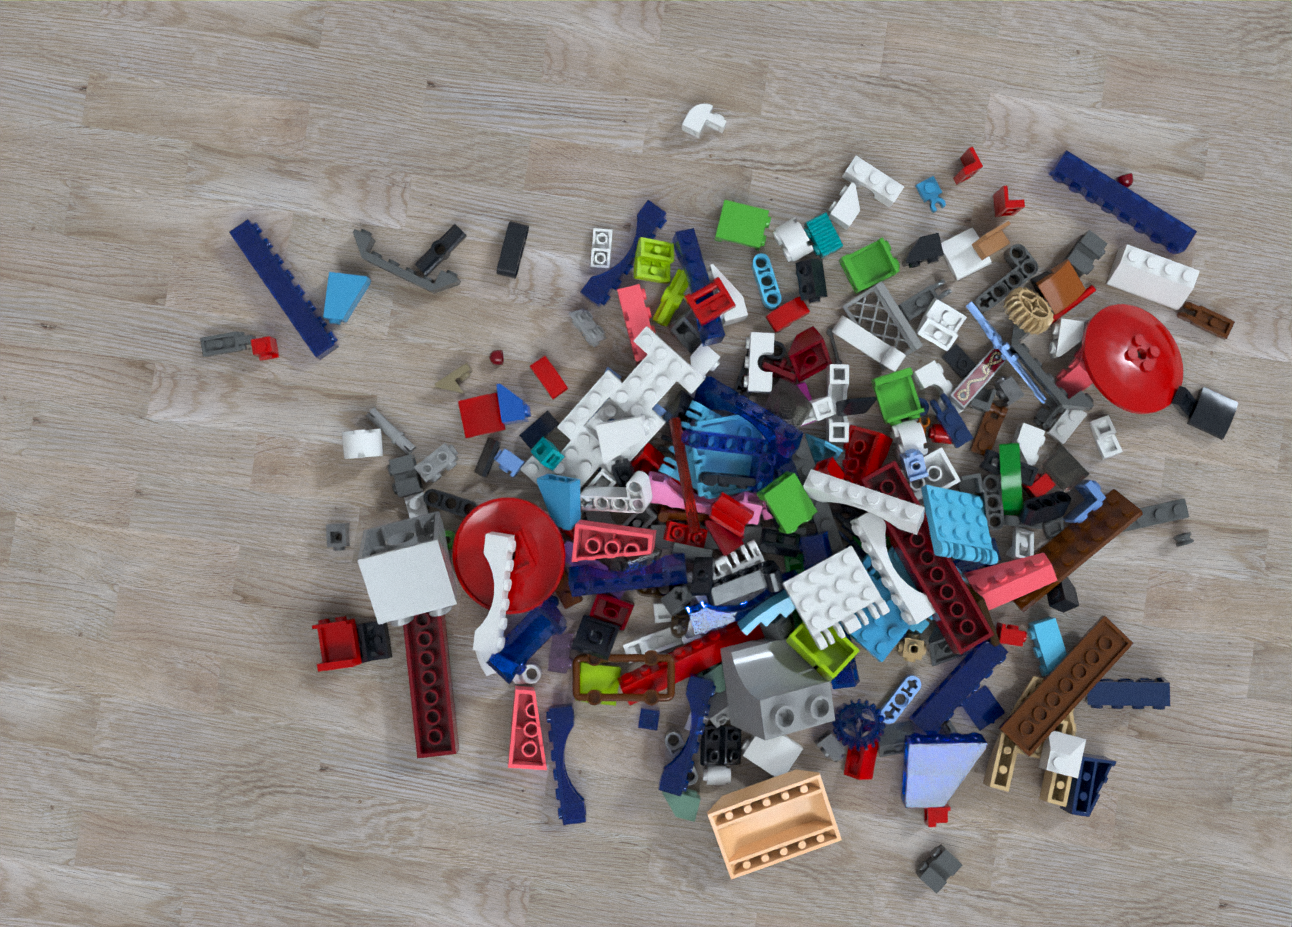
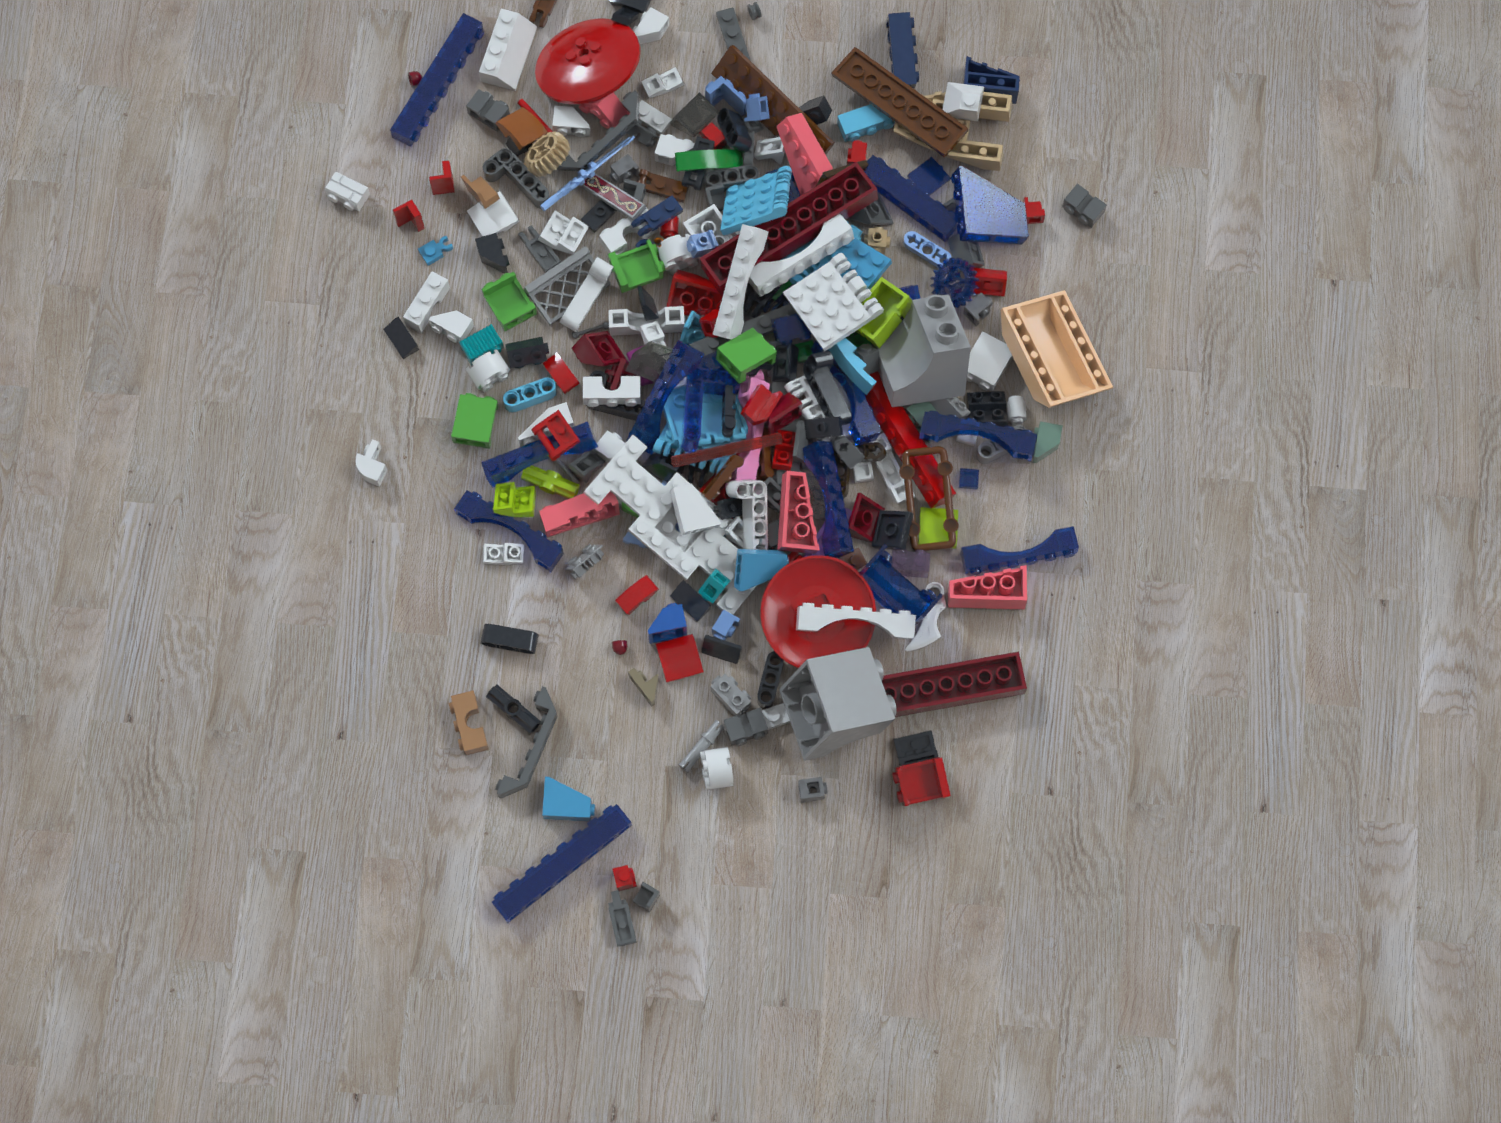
camera: 95 degrees left, 15 degrees down
(246, 369) = (646, 897): none -> dark grey panel
(413, 206) = (471, 739): none -> medium nougat arch
(653, 468) = (722, 477): none -> reddish brown plate
(836, 155) = (401, 338): none -> black slope
(1000, 106) = (347, 192): none -> white brick
(1068, 533) = (756, 108): none -> medium blue brick
(1170, 429) = (651, 26): none -> white slope

